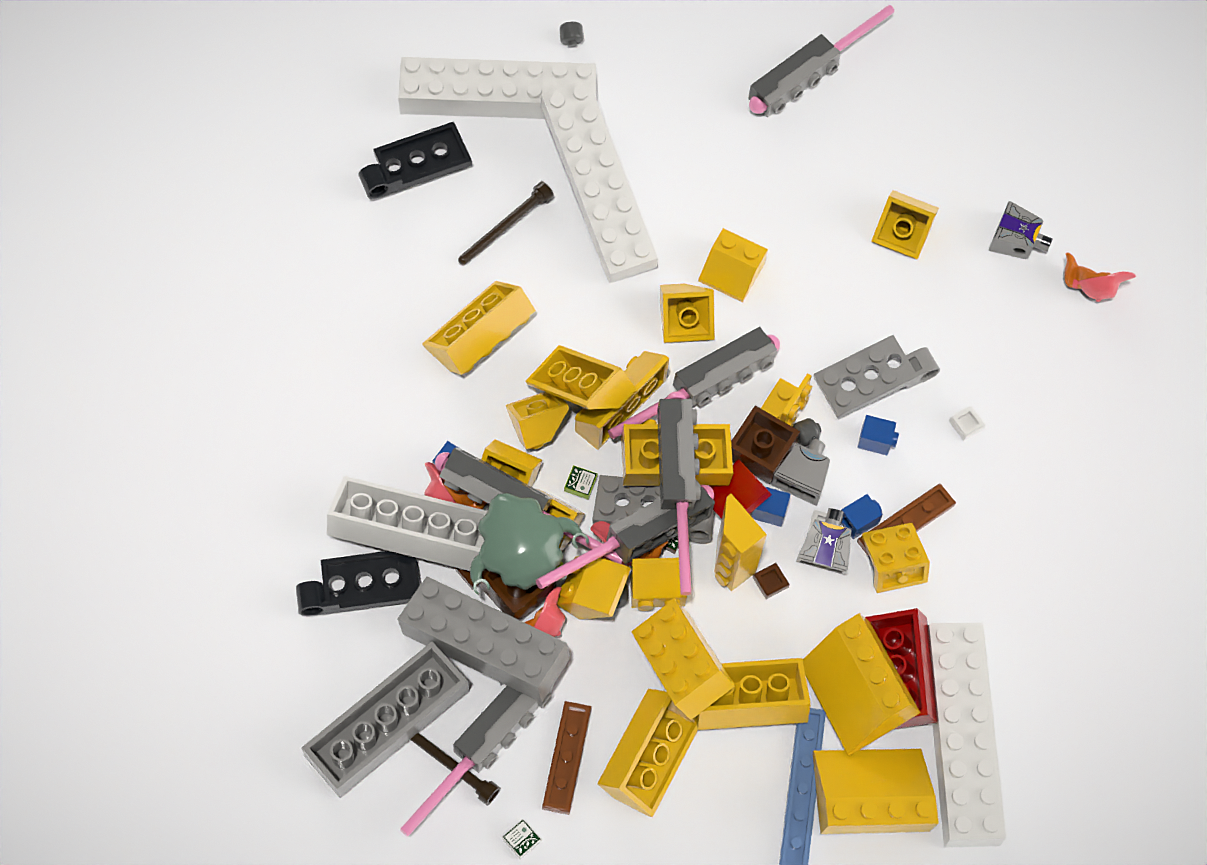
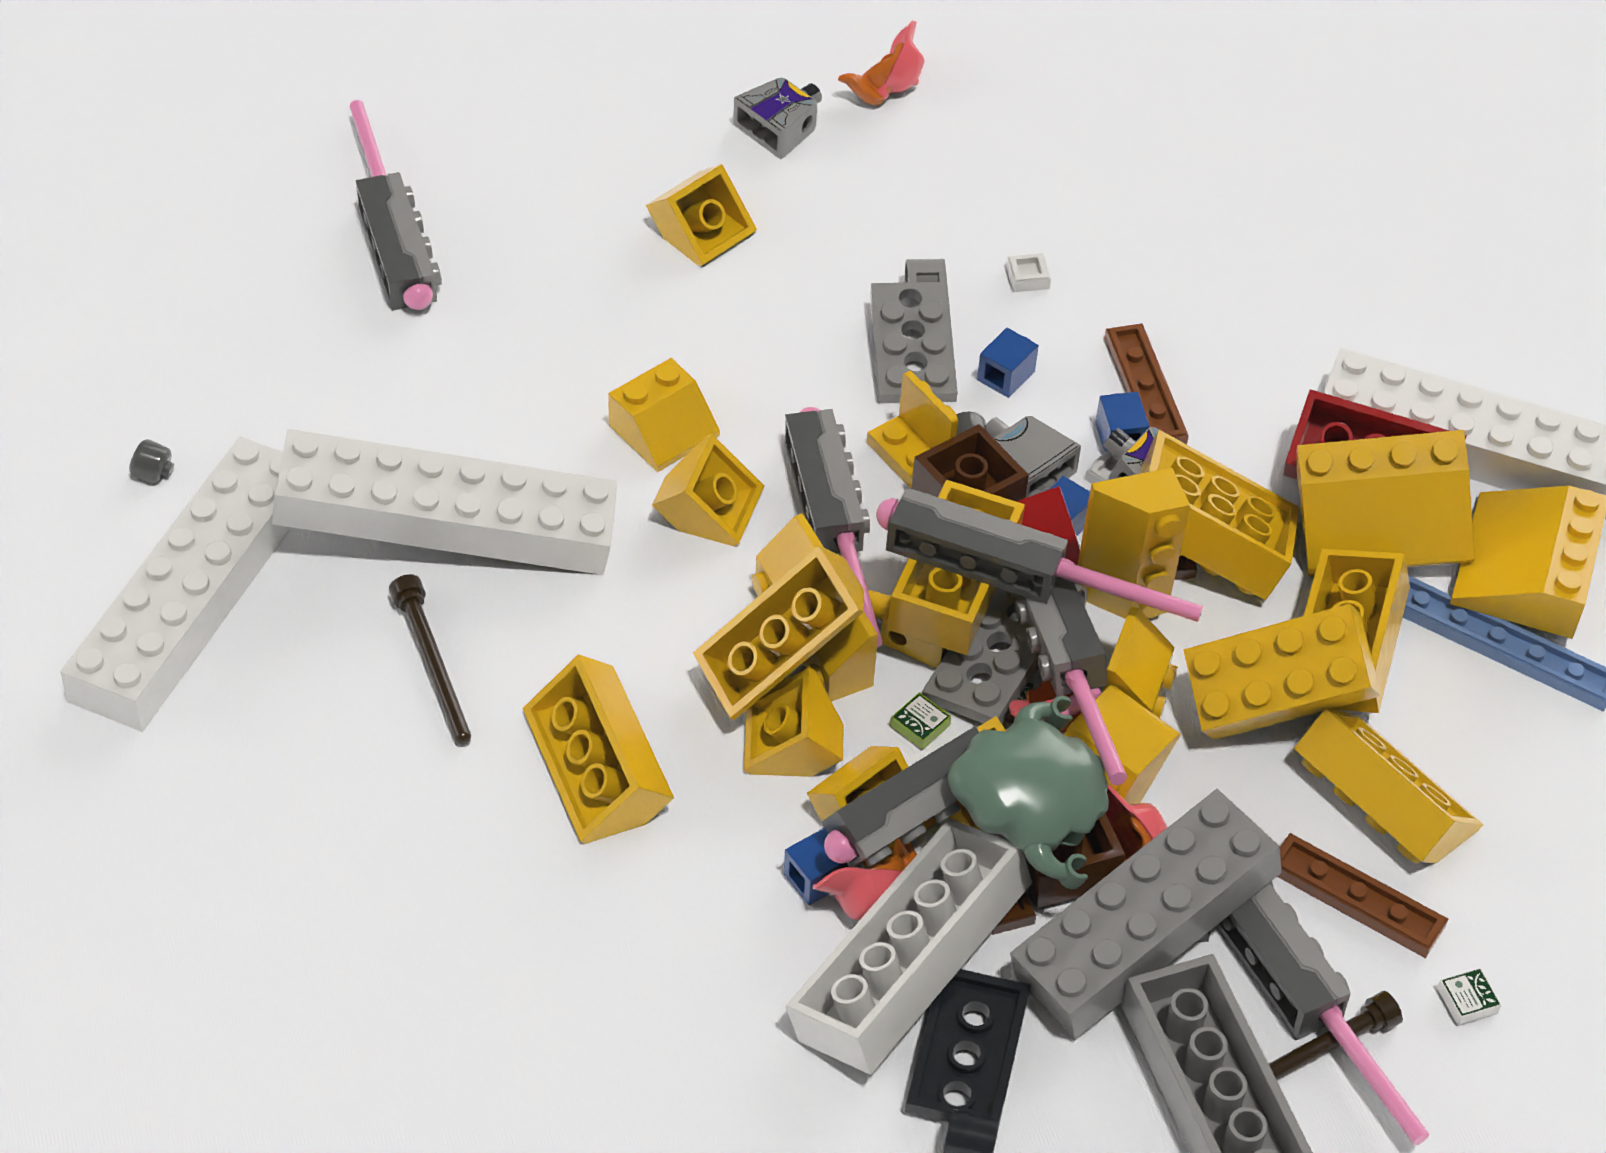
camera: 65 degrees left, 15 degrees down
(380, 181) = (264, 786): black hinge -> none
(802, 586) = (1231, 521): none -> yellow slope
(897, 557) = (1199, 402): yellow bracket -> none

